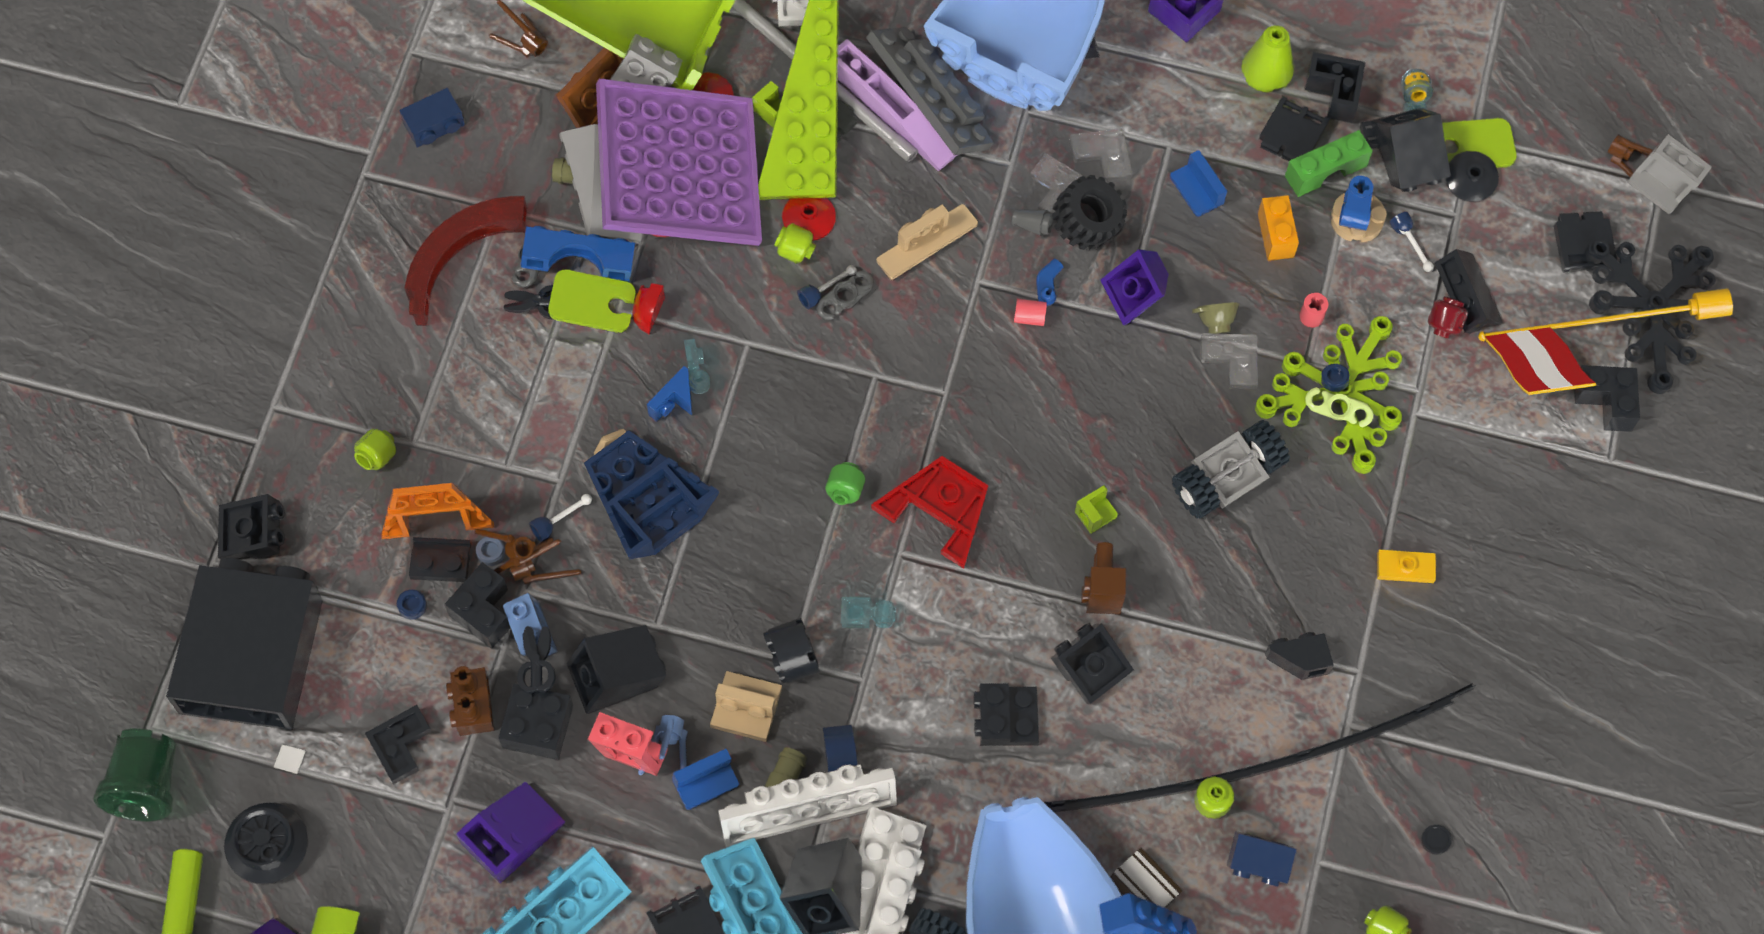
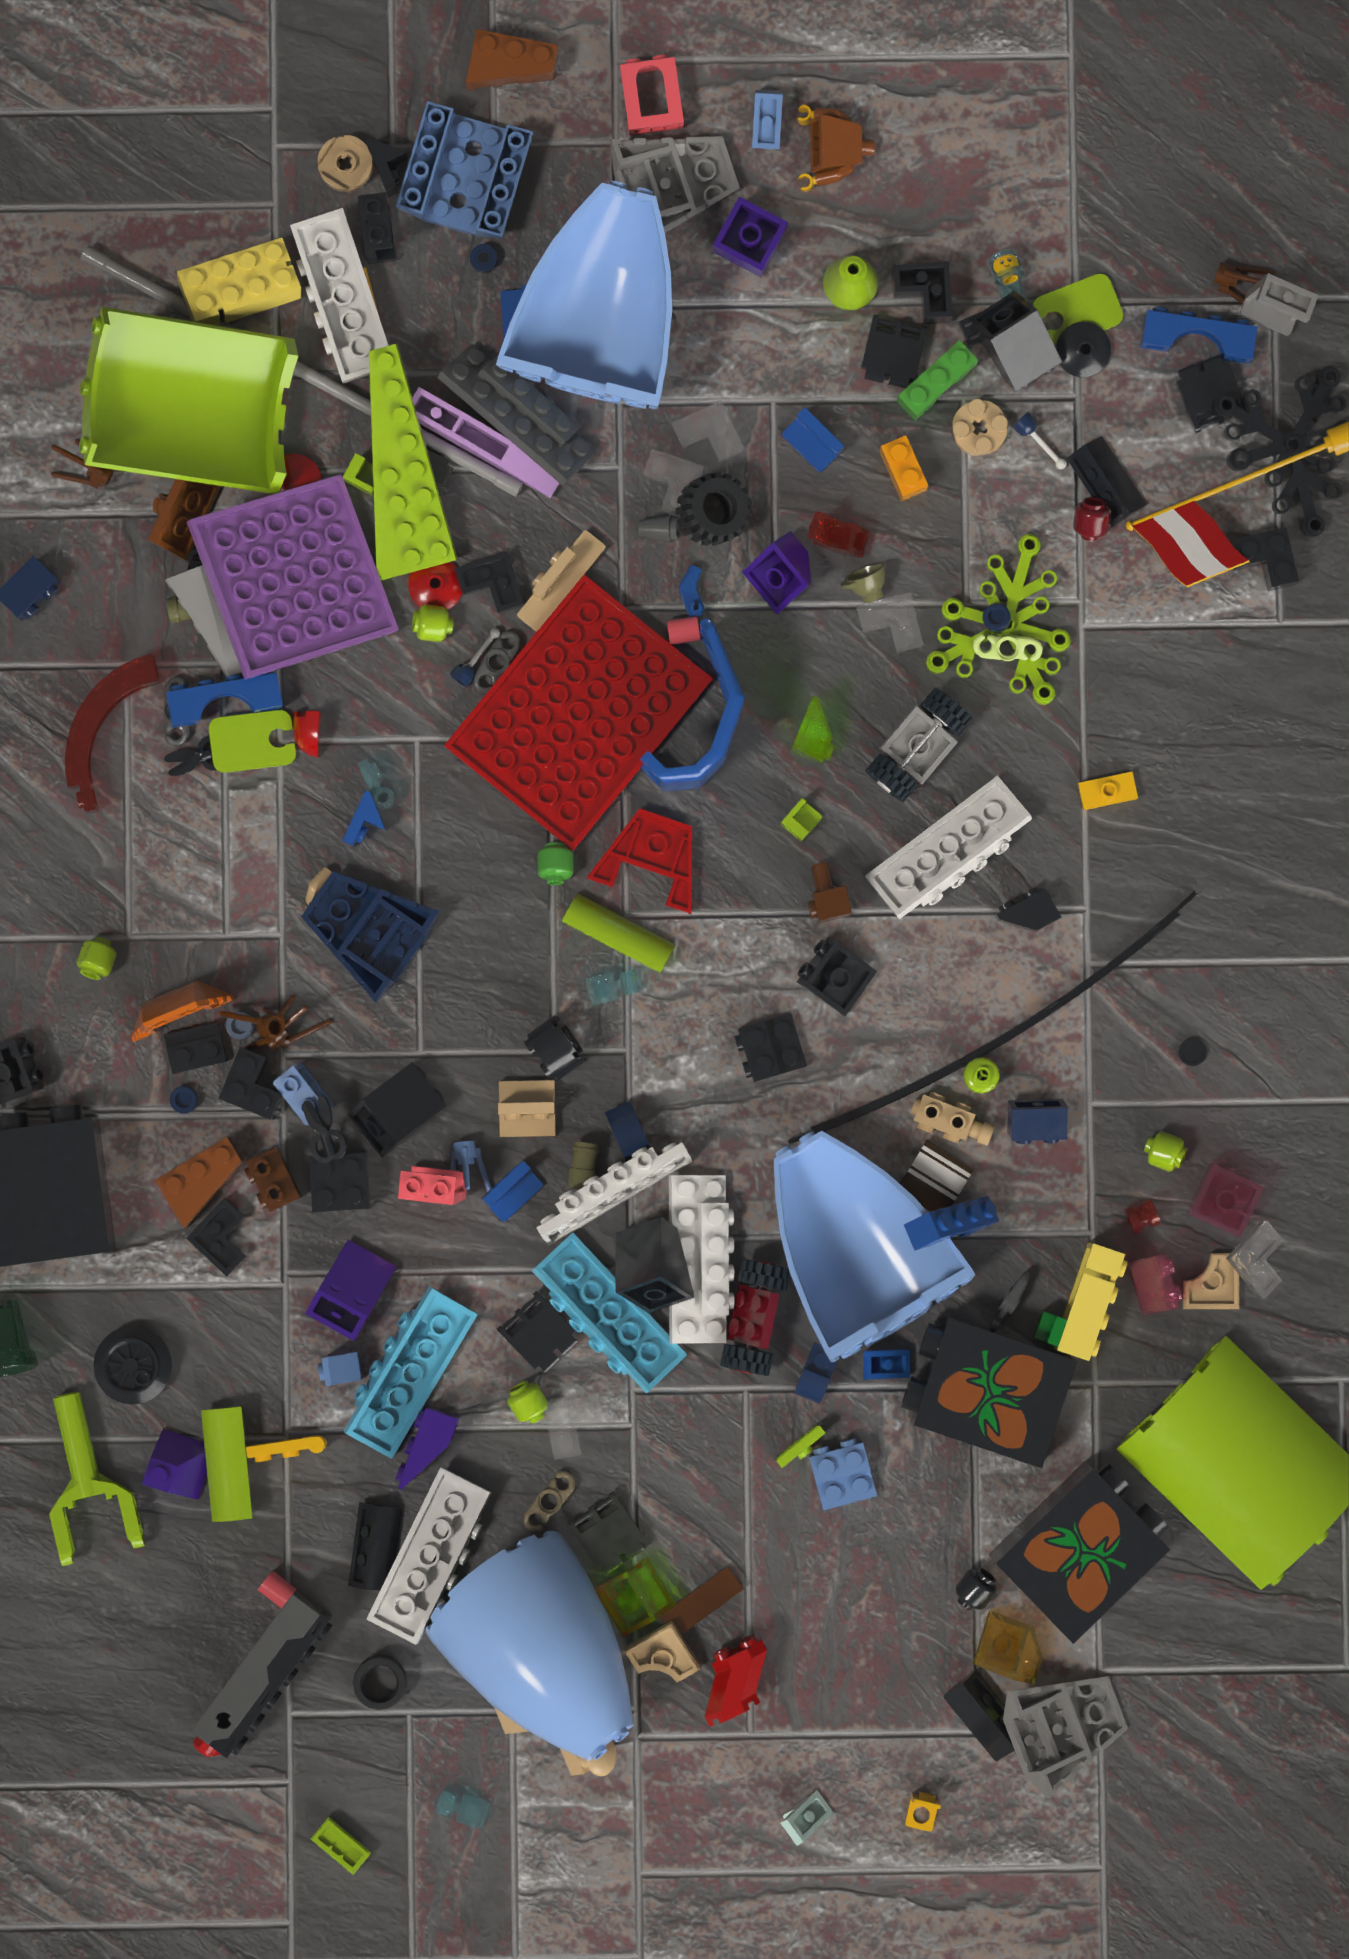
camera: 15 degrees left, 20 degrees up
(289, 759) = (123, 1279): white sticker -> none
(399, 678) = (199, 1179): none -> dark orange wedge
(473, 903) = (340, 1368): none -> medium blue slope
(543, 527) = (282, 988): hinge -> none
(648, 64) = (228, 482): light grey bracket -> none
(863, 217) = (492, 573): none -> black plate
(886, 566) = (618, 933): none -> lime brick
(908, 358) = (578, 712): none -> red plate
(1007, 425) = (696, 775): none -> blue windscreen
(1128, 433) = (814, 735): none -> clear neon green slope
(1162, 834) = (944, 1118): none -> tan brick
(1198, 269) = (838, 535): none -> clear red brick
(1236, 575) = (950, 849): none -> white plate
(1313, 310) = (959, 548): coral piece -> none
(1357, 206) = (976, 430): blue piece -> none
(1613, 198) = (1233, 340): none -> blue arch

